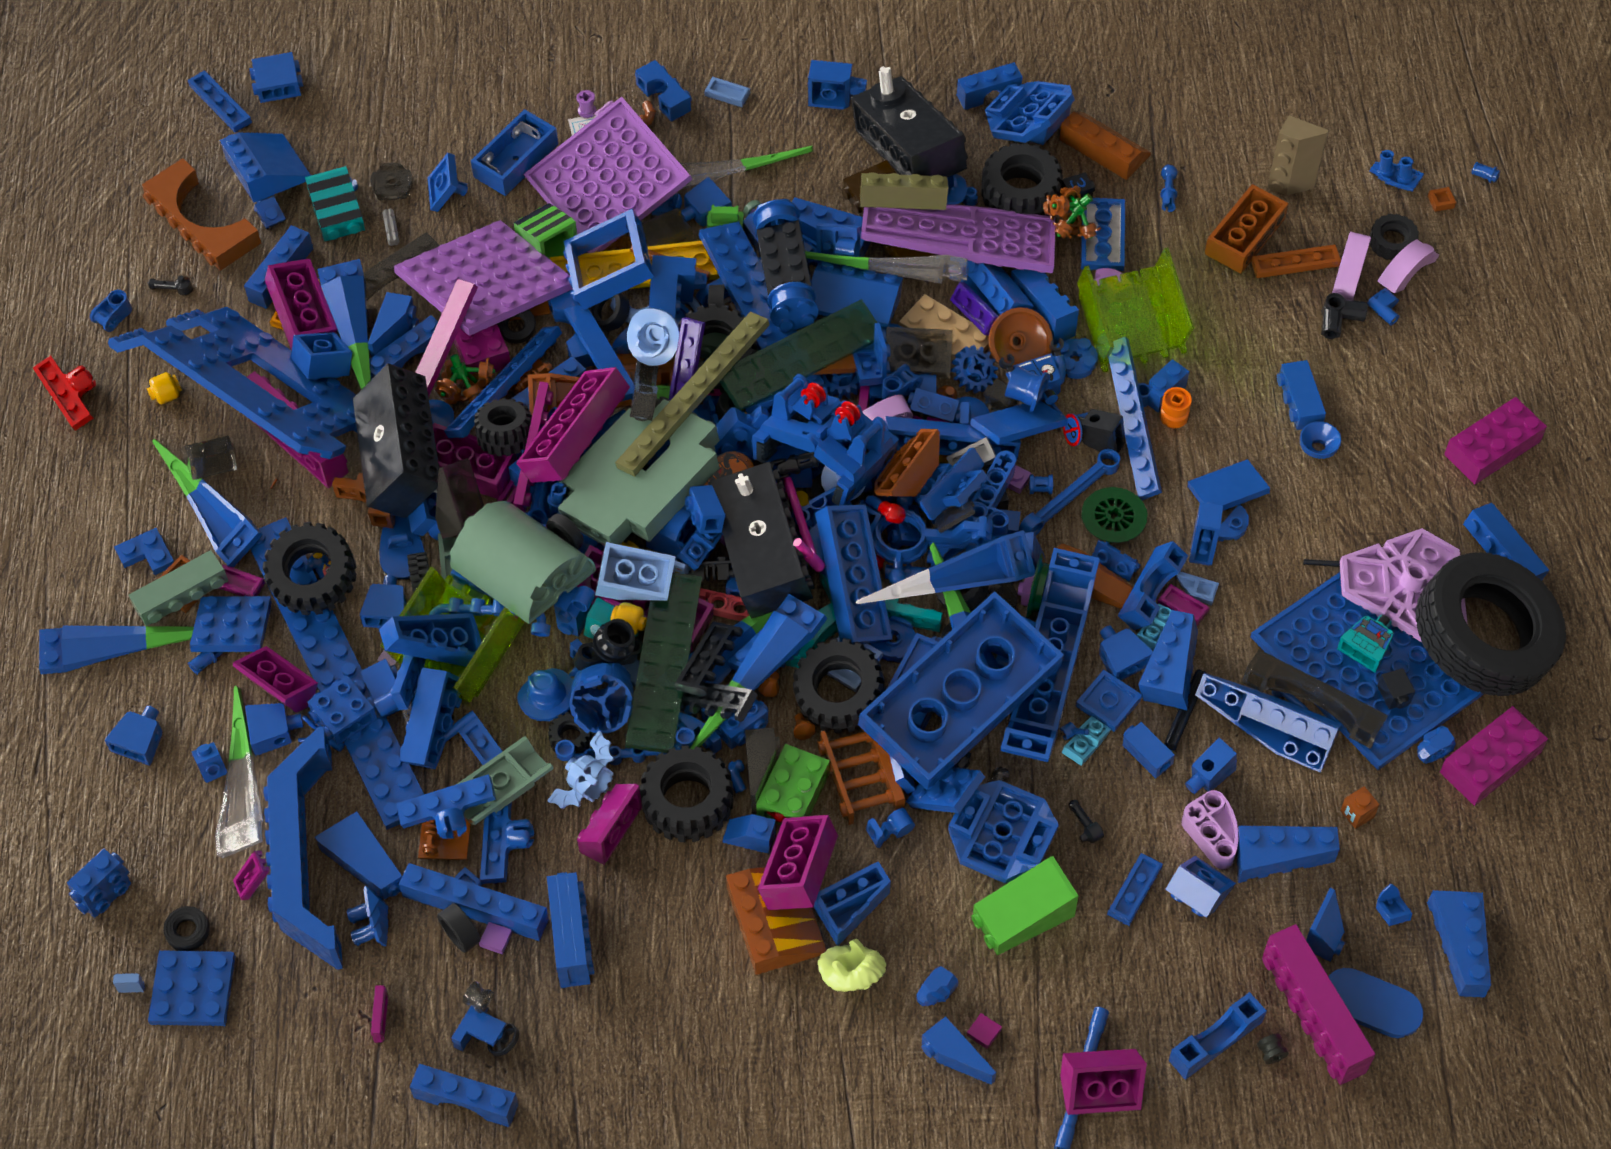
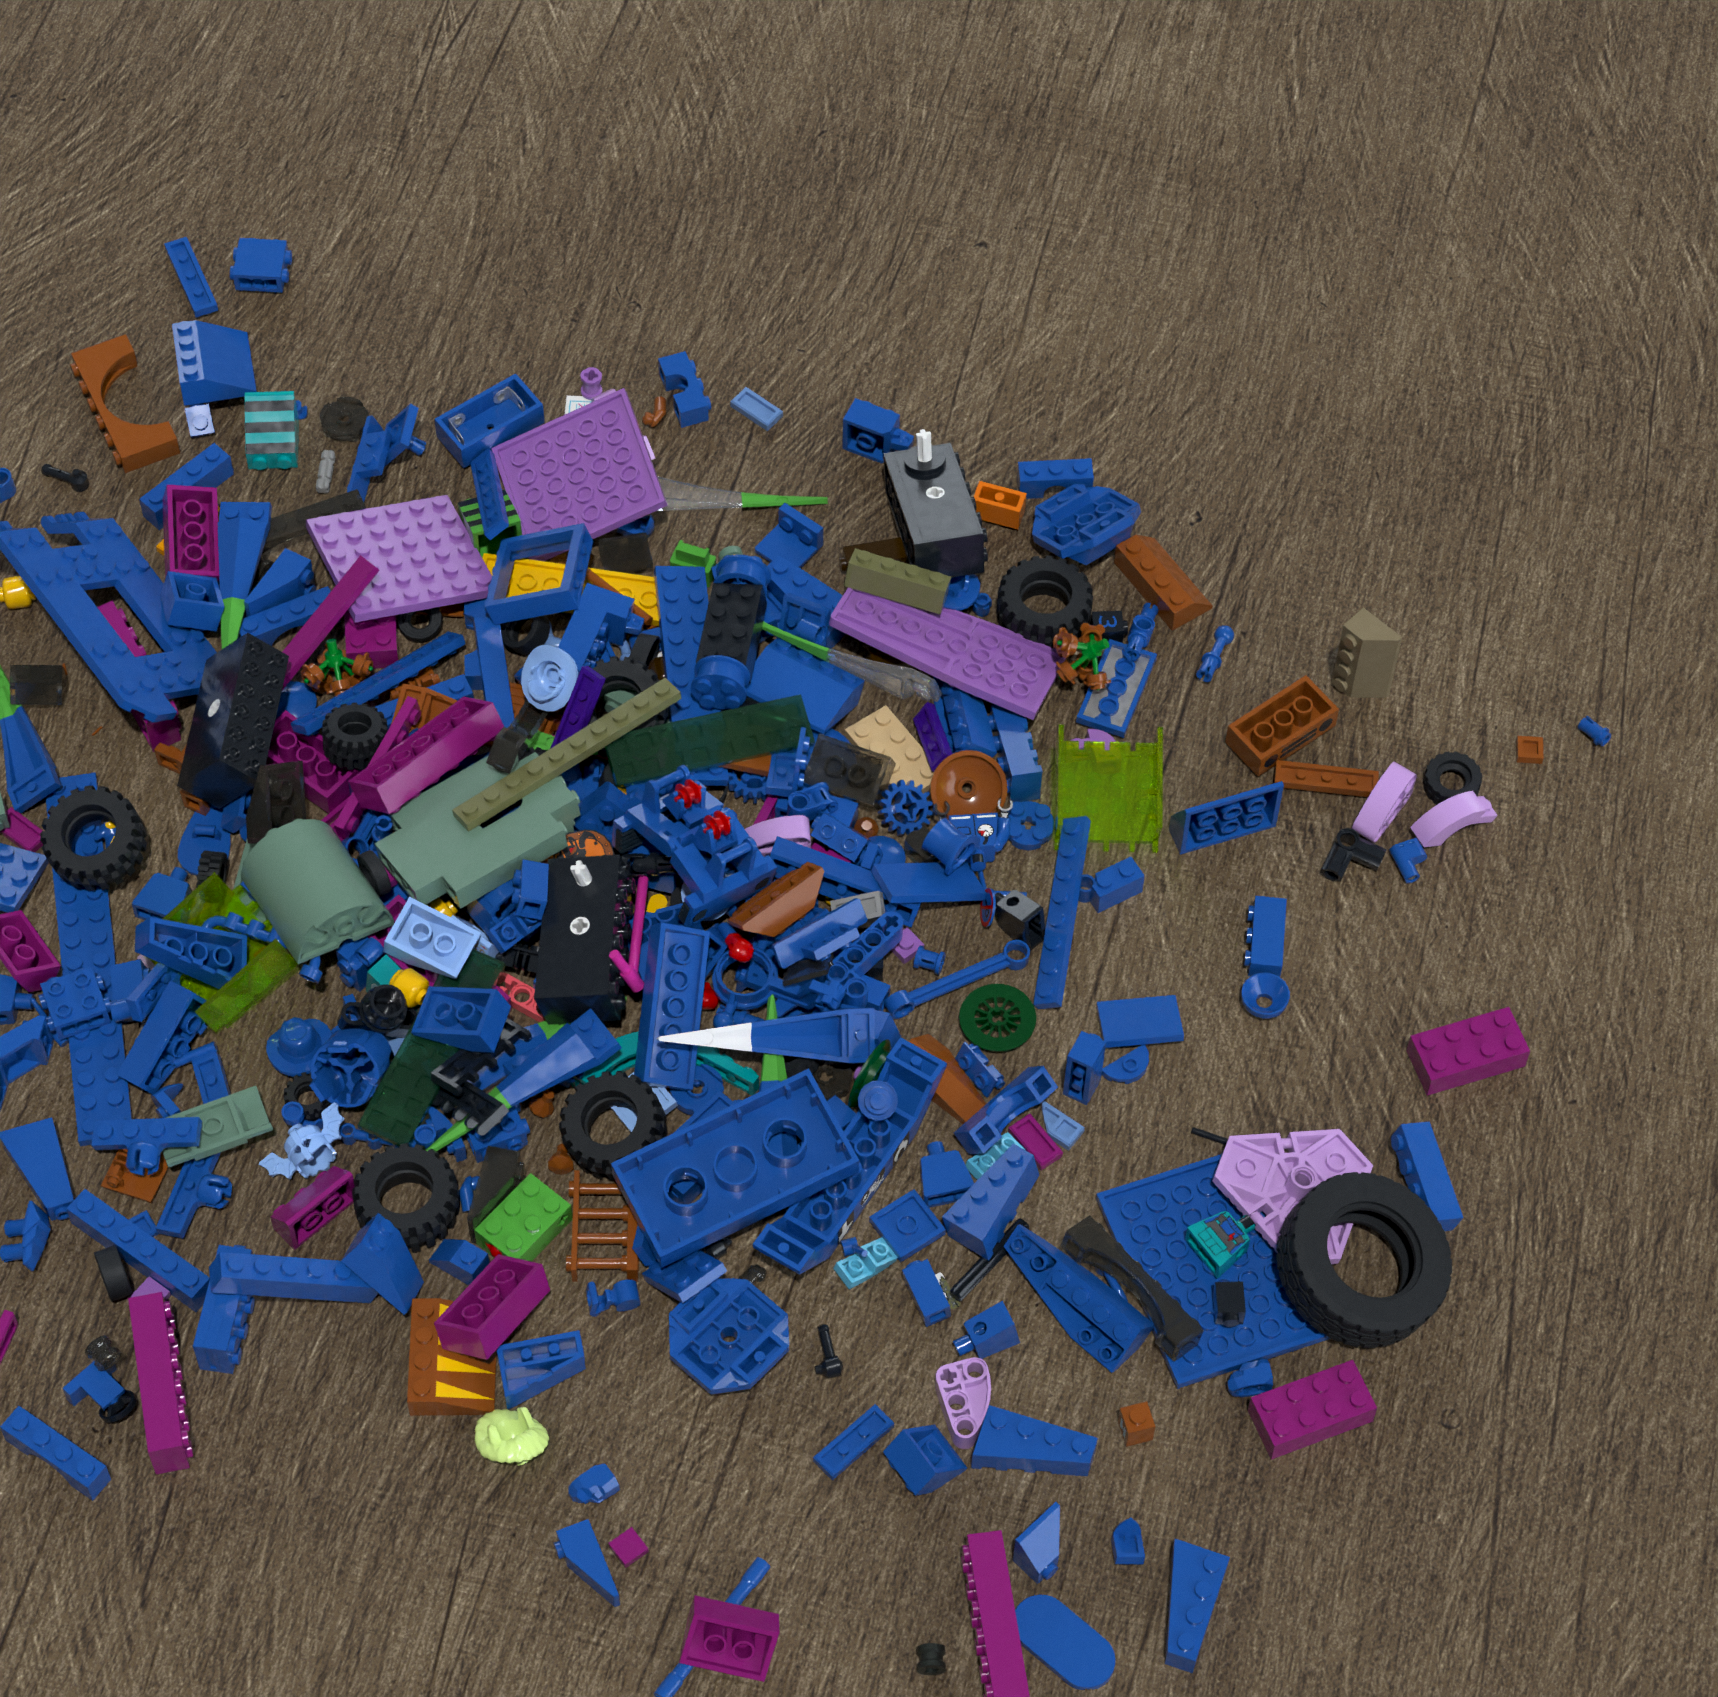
camera: 15 degrees right, 0 degrees up
(426, 203) = (370, 456): none -> blue bracket
(447, 772) = (163, 1100): none -> blue plate
(535, 1008) = (160, 1383): none -> magenta brick
(540, 208) = (489, 494): none -> blue tile
(621, 885) = (287, 1278): none -> blue brick
(684, 630) = (462, 1017): none -> blue slope
(691, 851) = (385, 1262): none -> blue slope
(700, 201) = (675, 527): blue torso -> none
(798, 180) = (793, 538): none -> blue bracket
(959, 112) = (1000, 504): none -> orange brick
(1026, 906) = (721, 1426): bright green slope -> none
(1053, 604) = (877, 1100): none -> blue plate
(1105, 185) = (1141, 631): none -> blue pin
(1175, 407) = (1115, 913): orange wheel -> none
(1232, 1026) = (851, 1636): blue arch -> none
(1234, 310) = (1226, 818): none -> blue slope
(1397, 175) = (1488, 706): blue connector -> none

